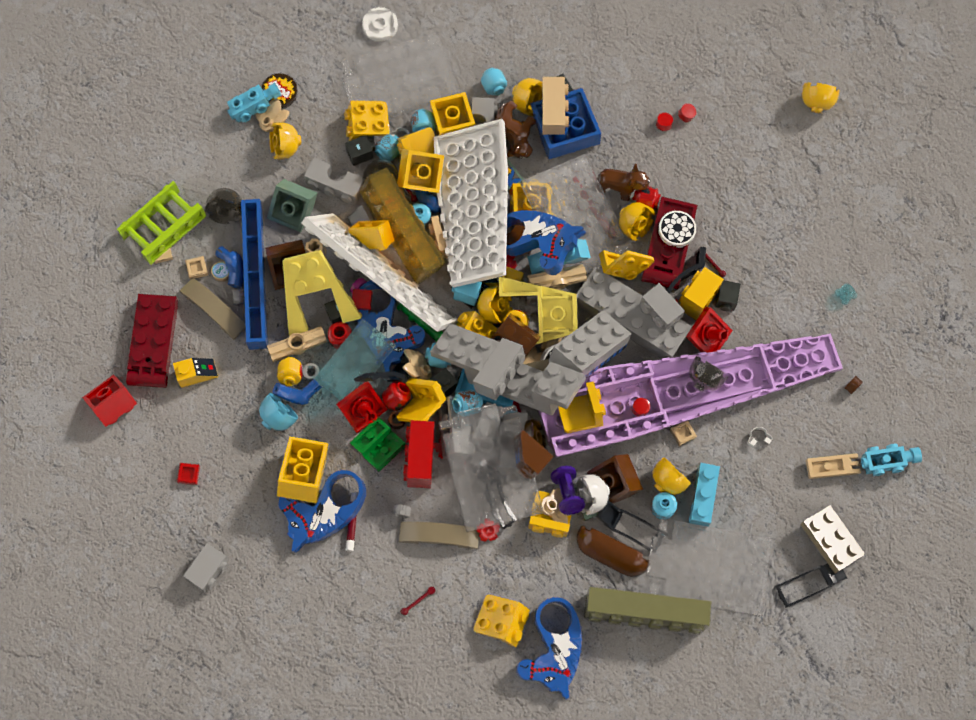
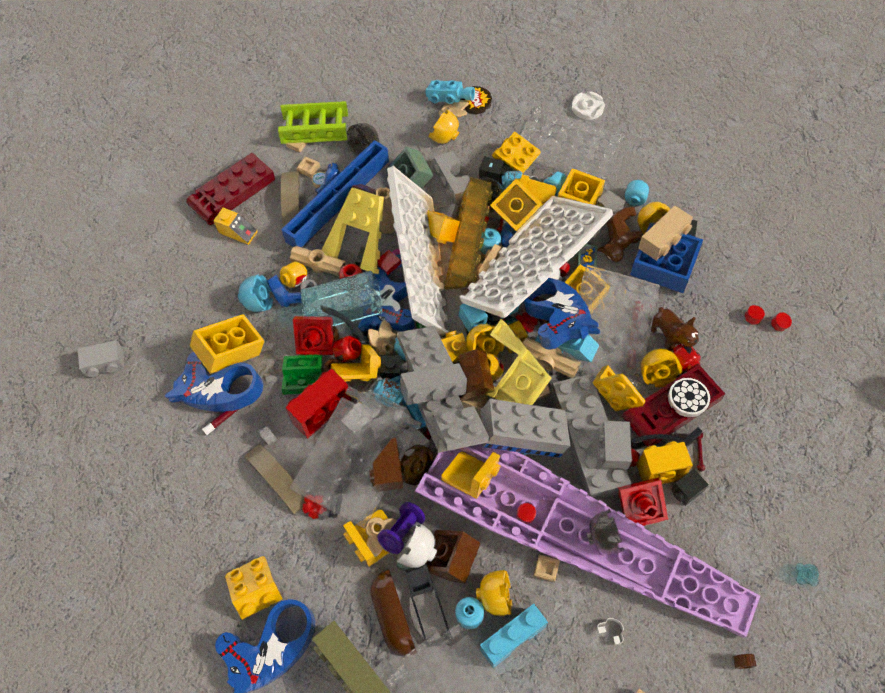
camera: 50 degrees right, 10 degrees down
(110, 400) = (164, 204): red slope -> none
(188, 473) = (162, 289): red tile -> none
(431, 590) = (228, 514): dark red hinge -> none

